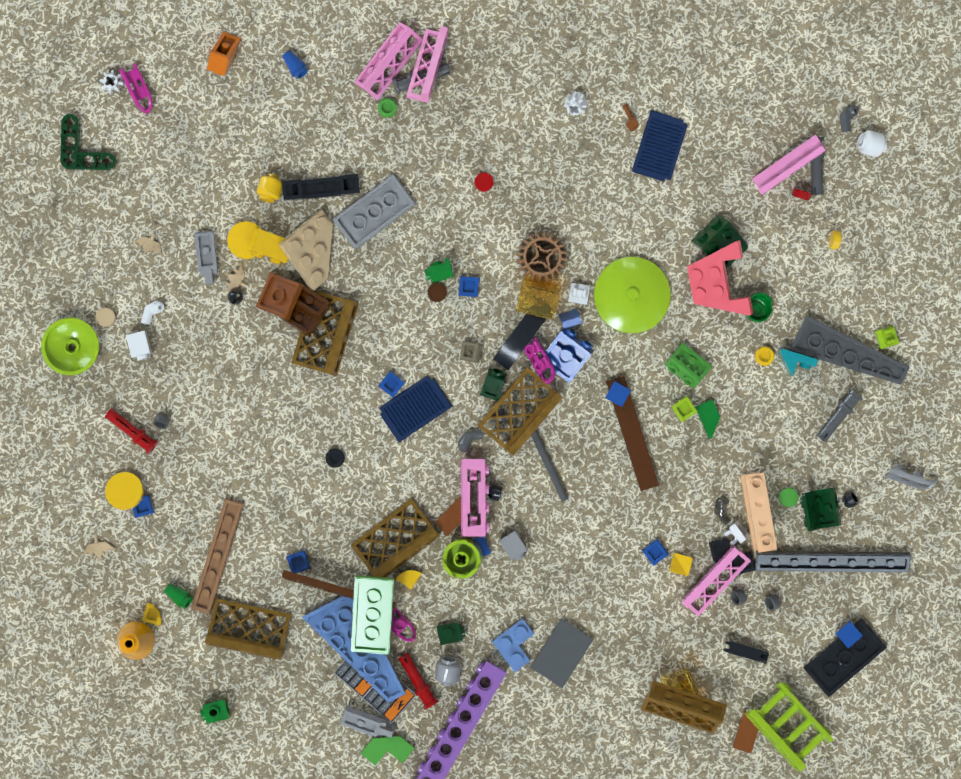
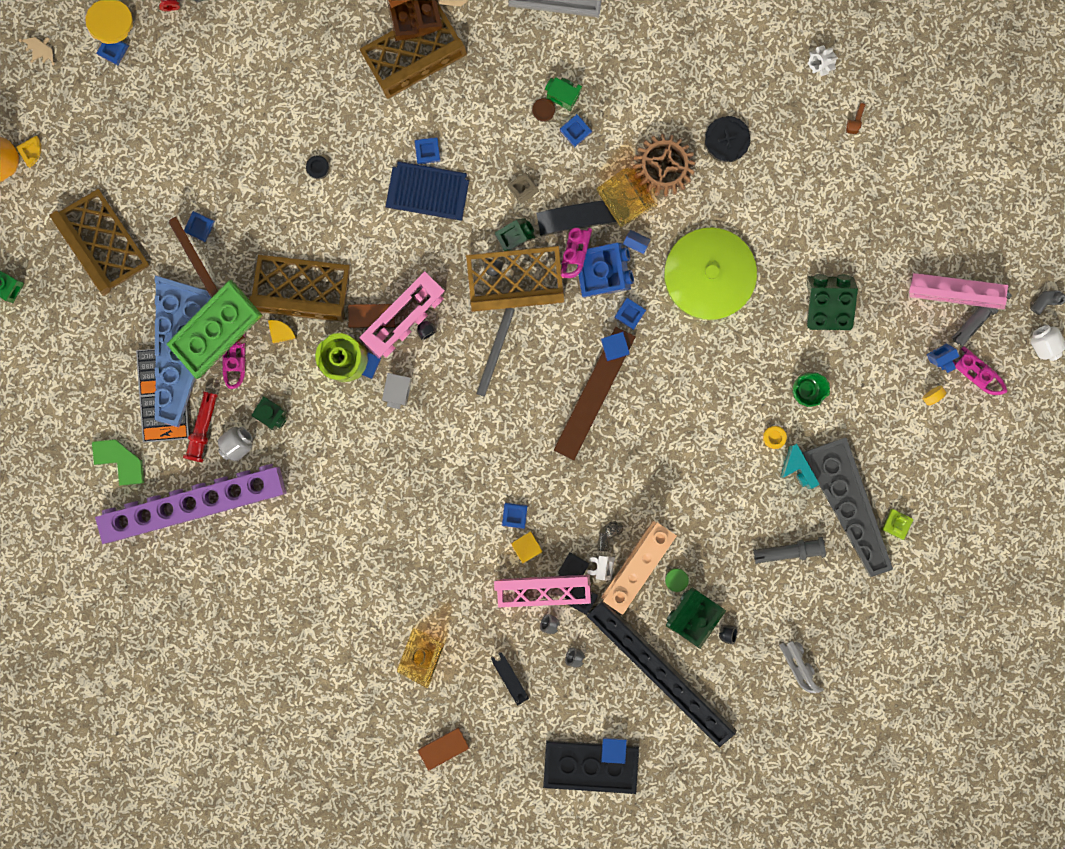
camera: 45 degrees right, 0 degrees up
(179, 596) = (68, 156): green cone -> none
(217, 556) = (135, 154): medium nougat tile -> none
(367, 723) = (122, 421): light grey hinge -> none
(467, 438) = (448, 259): dark grey arm -> none
(483, 182) = (676, 53): red tile -> none
(509, 643) = (311, 472): medium blue plate -> none
(561, 653) = (348, 524): dark grey tile -> none
(564, 204) = (727, 139): none -> black tile
(579, 293) = (665, 228): white tile -> none
(607, 365) = (630, 313): none -> blue tile
(659, 146) = (859, 169): dark blue window -> none
(684, 409) = (659, 415): lime tile -> none
(688, 365) = (700, 381): bright green bracket -> none
(689, 704) = (408, 674): pearl gold fence -> none
(708, 416) = (675, 443): green tile -> none
(710, 281) = (790, 327): coral wing -> none
(770, 730) = (464, 768): lime fence -> none
(801, 194) = (943, 328): red tile -> none
(818, 212) = (943, 357): none -> blue tile
(853, 200) = (984, 375): none -> dark pink piece

